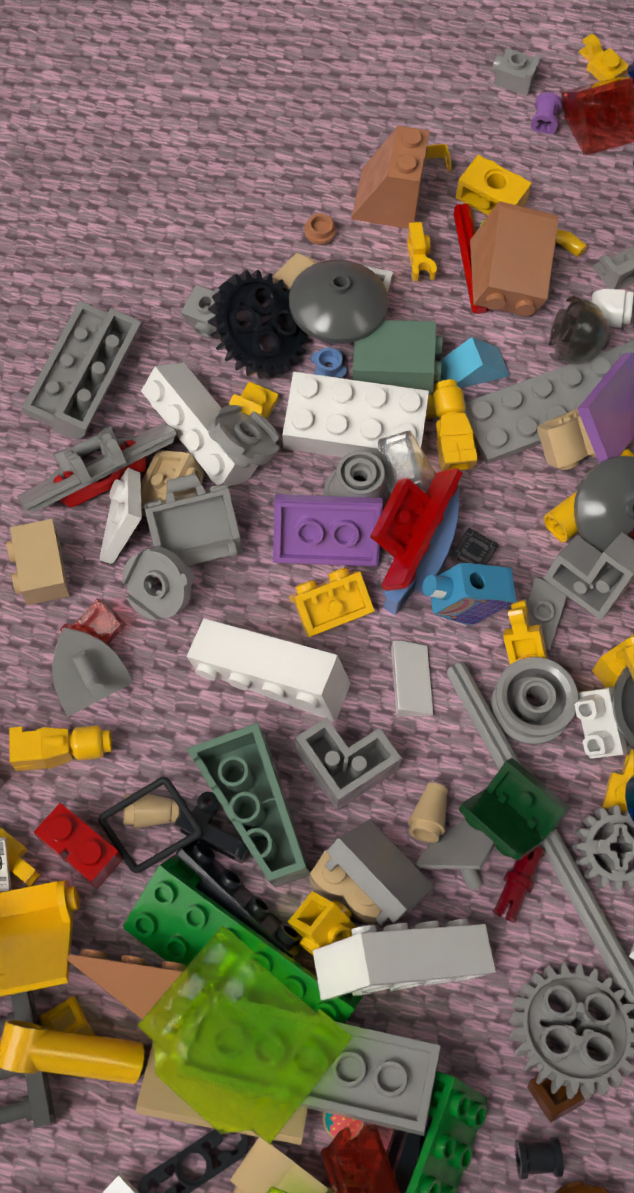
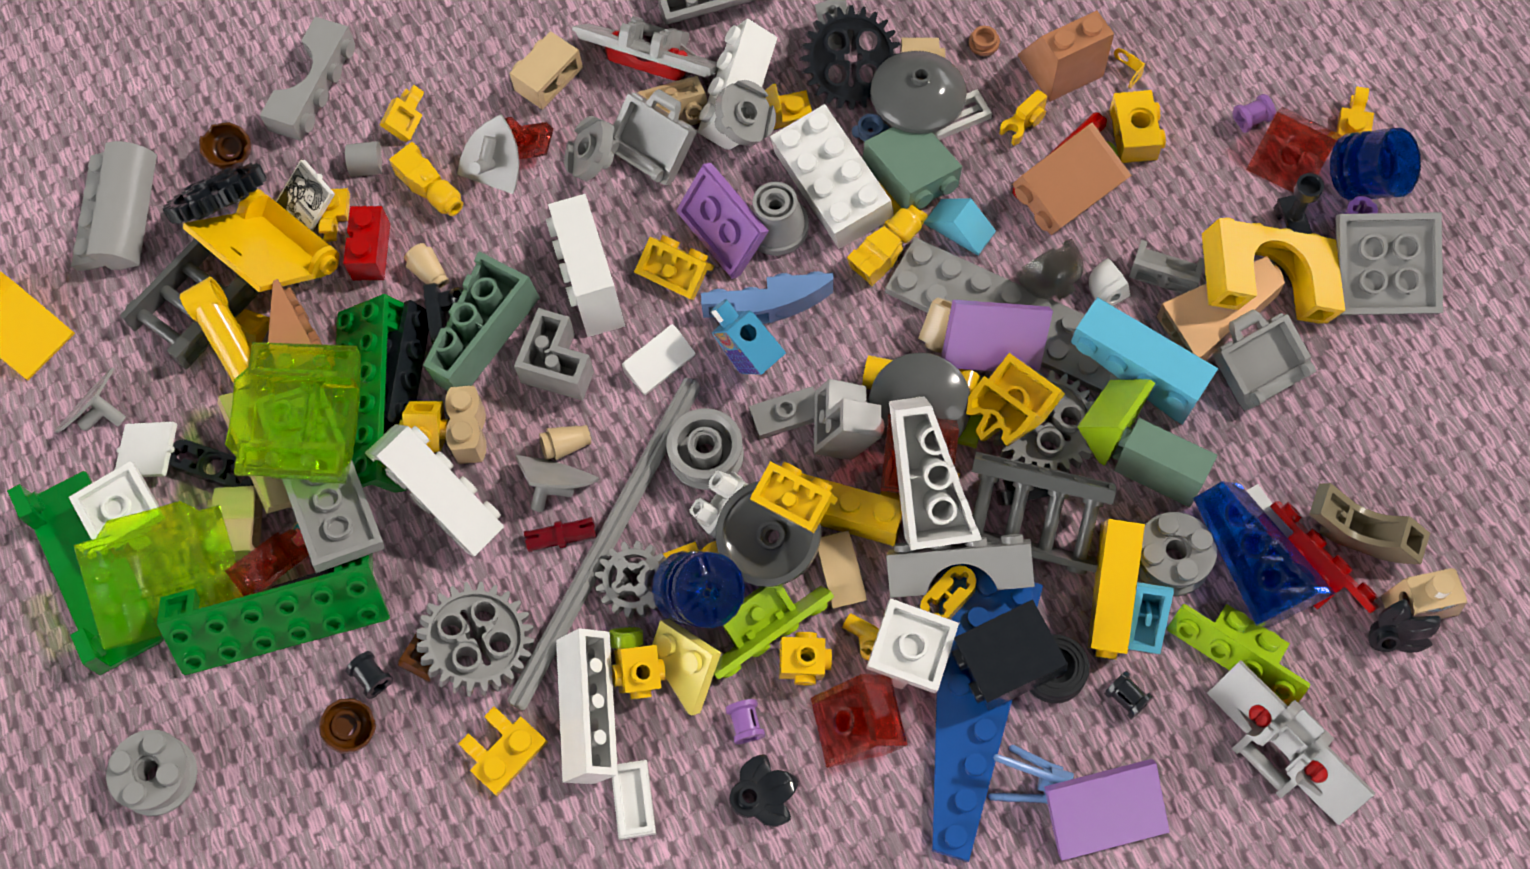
camera: 60 degrees right, 0 degrees up
(122, 515) = (620, 88): white wing -> none
(133, 798) = (398, 242): black piece -> none
(379, 870) = (485, 428): light grey piece -> none
(405, 458) = (816, 230): clear slope -> none
(410, 523) = (766, 260): red bracket -> none
(474, 549) = (800, 332): tile -> none
(515, 811) = (593, 487): dark green bracket -> none
(516, 71) = (1274, 64): light grey brick -> none
(522, 639) = (745, 404): yellow plate -> none
(570, 242) = (1144, 207): yellow arm -> none

